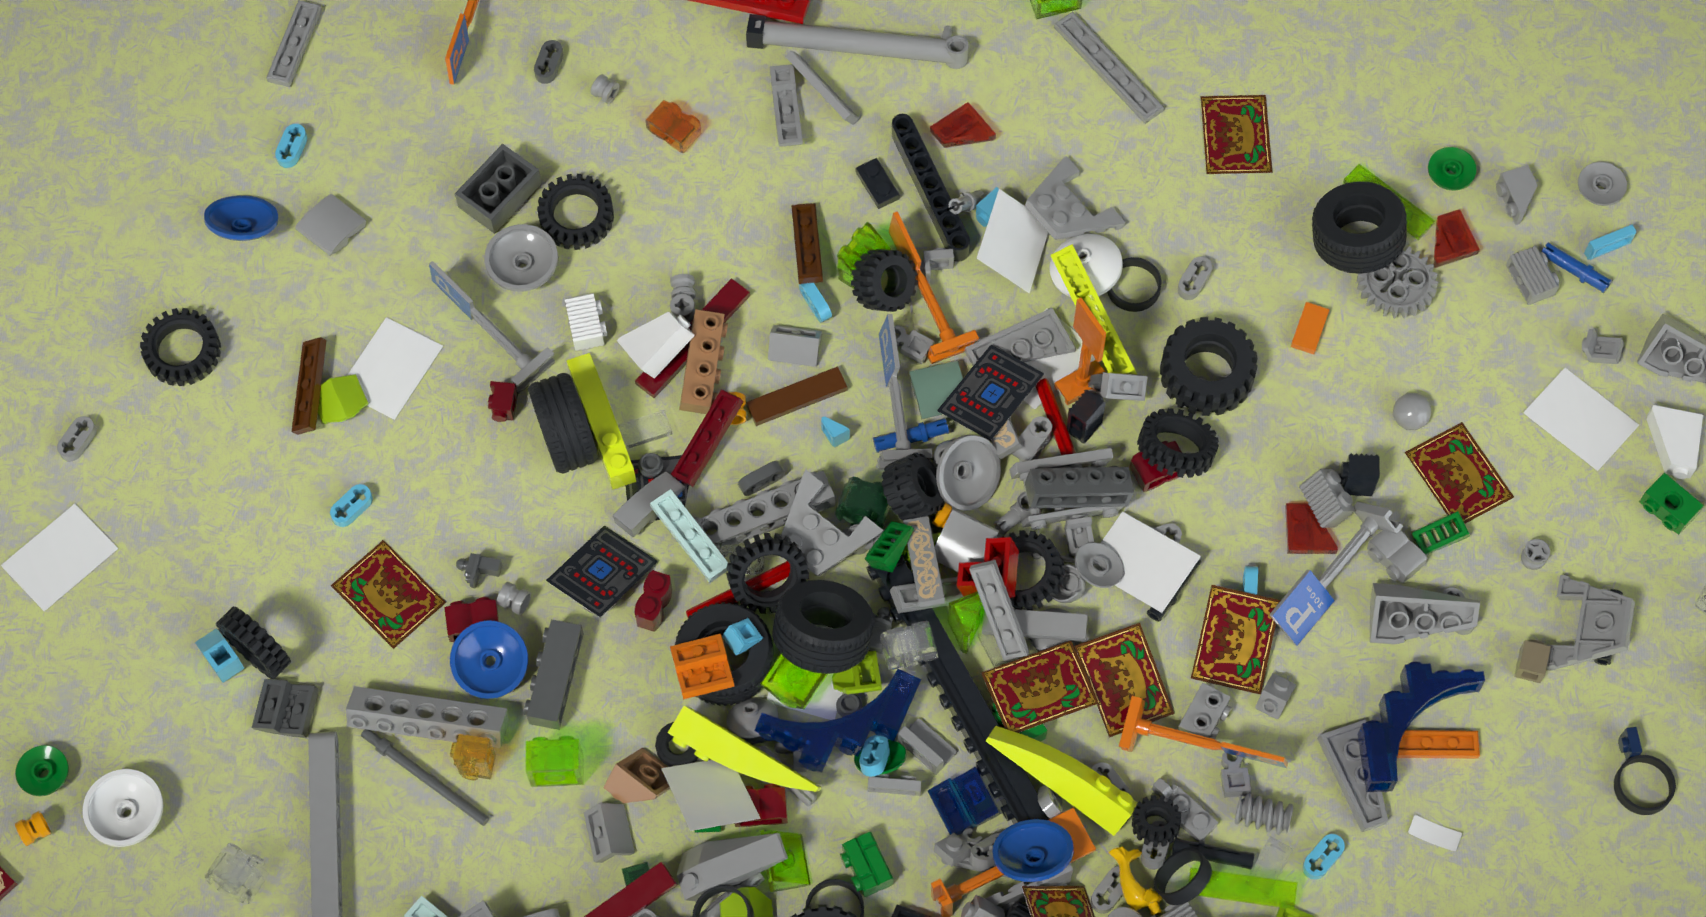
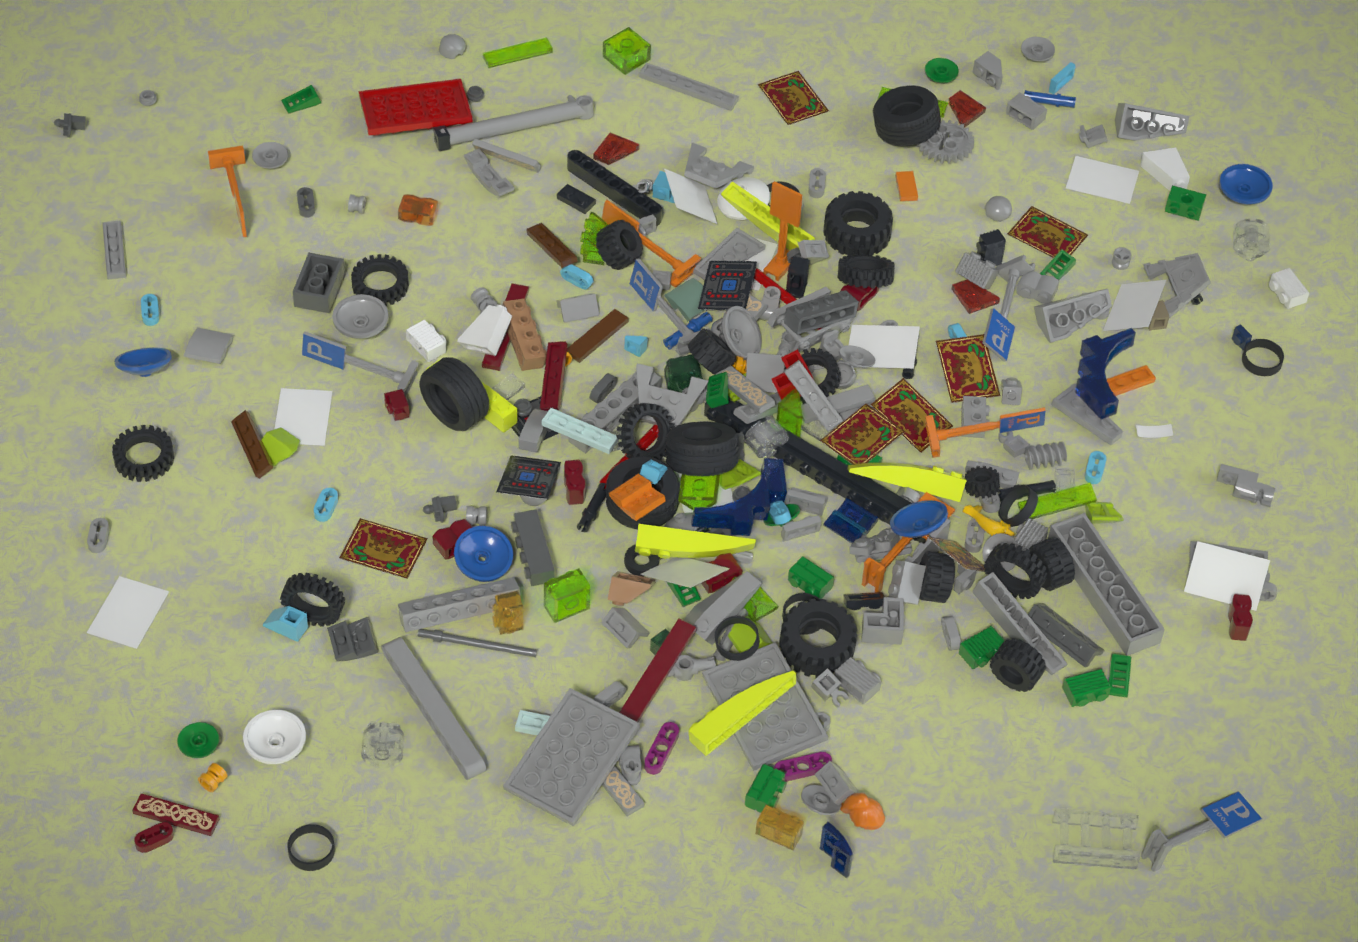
camera: 30 degrees left, 15 degrees down
(655, 648) = (590, 513): none -> black pin
(1509, 636) = (1134, 305): none -> white sticker

